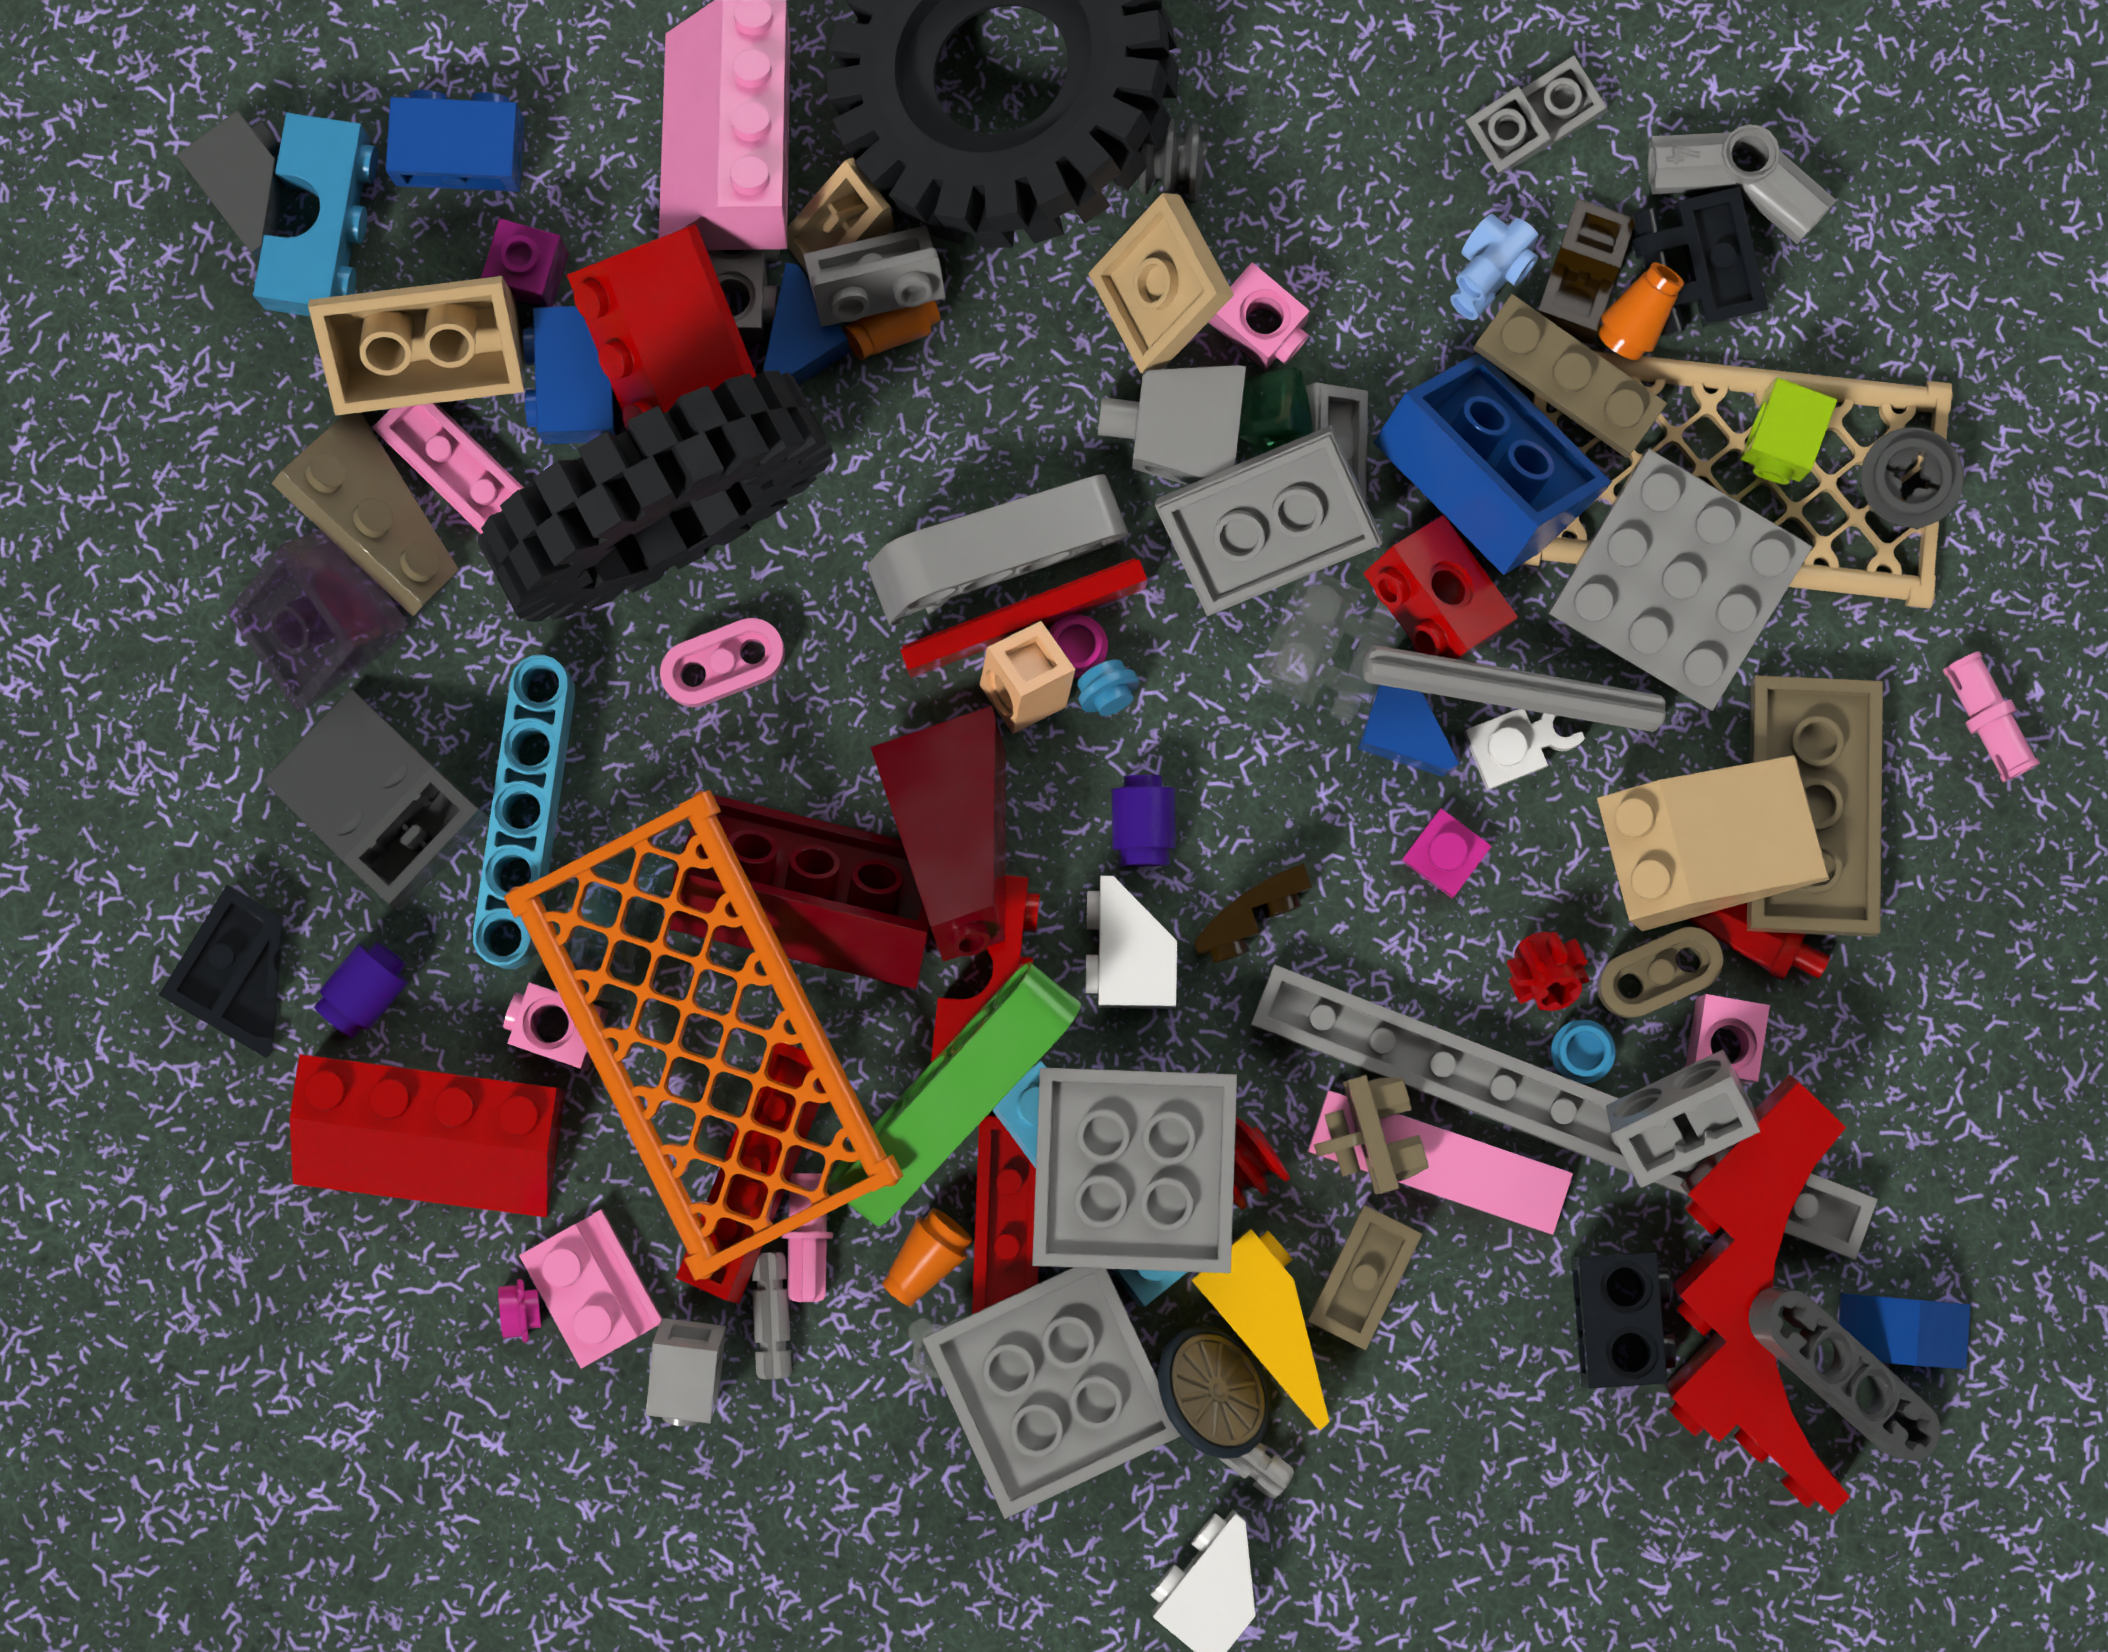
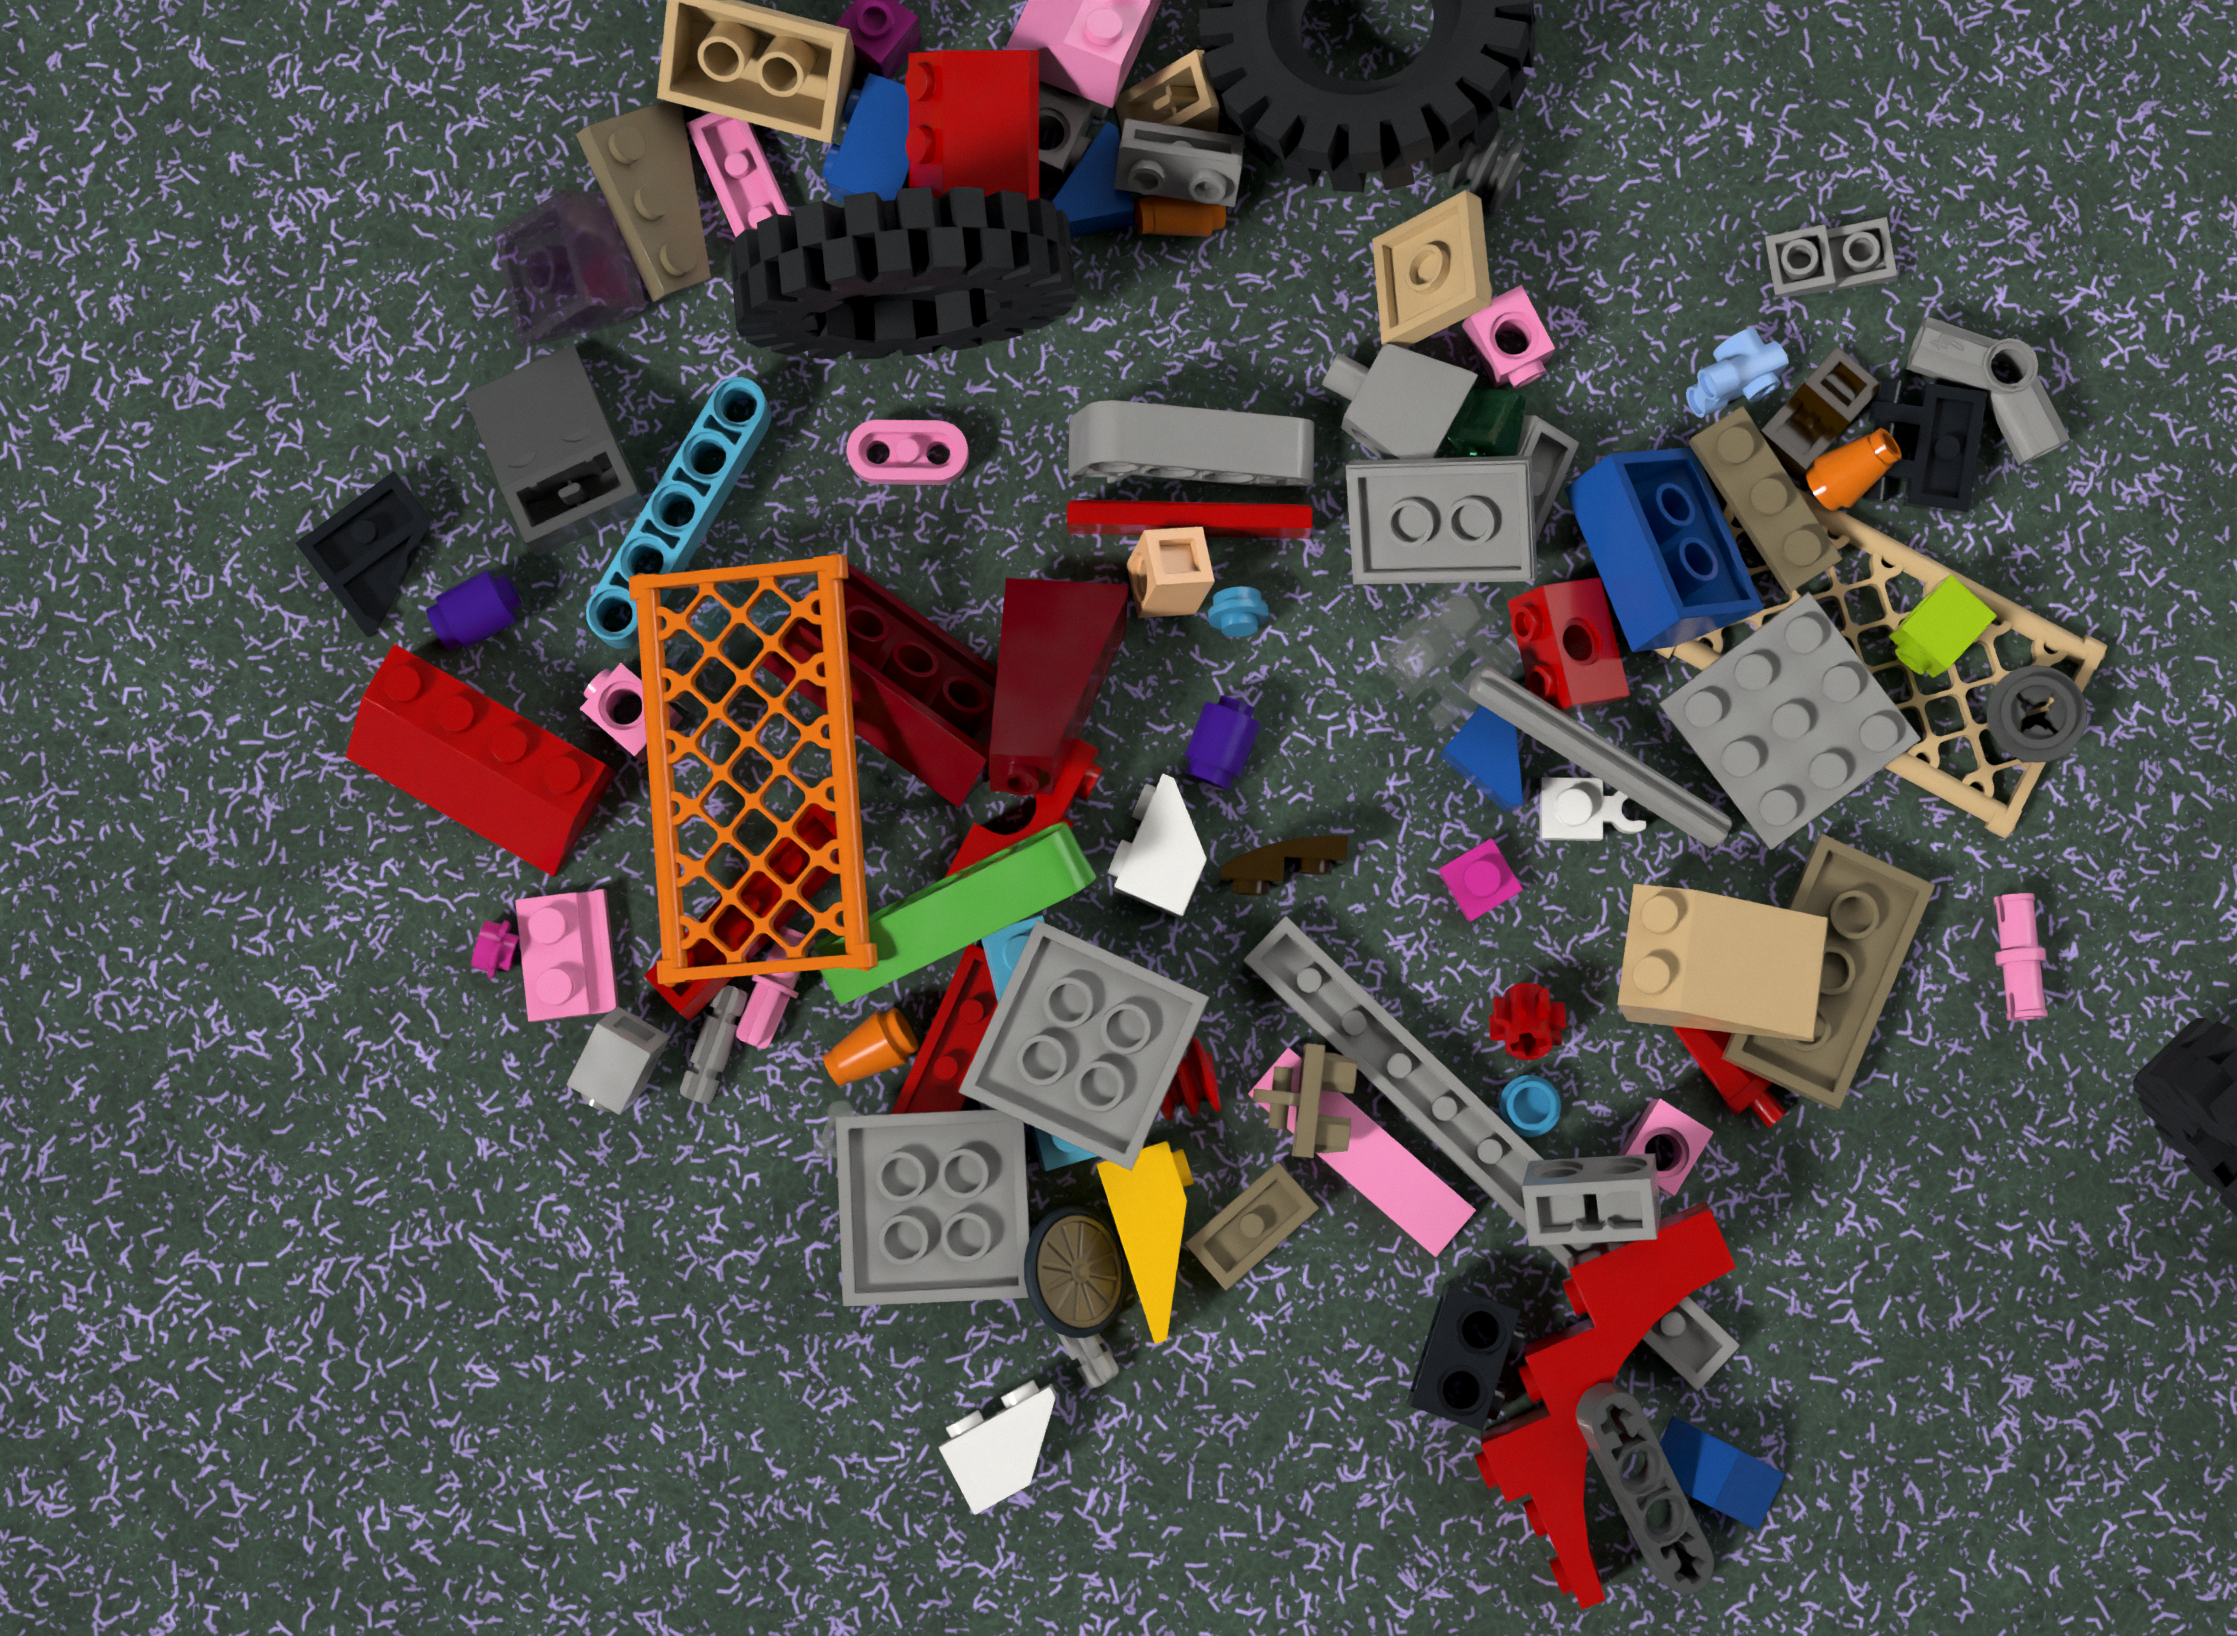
camera: 25 degrees right, 0 degrees up
(1081, 641) = (1231, 561): dark pink plate -> none
(1658, 972) = (1626, 1063): dark tan plate -> none

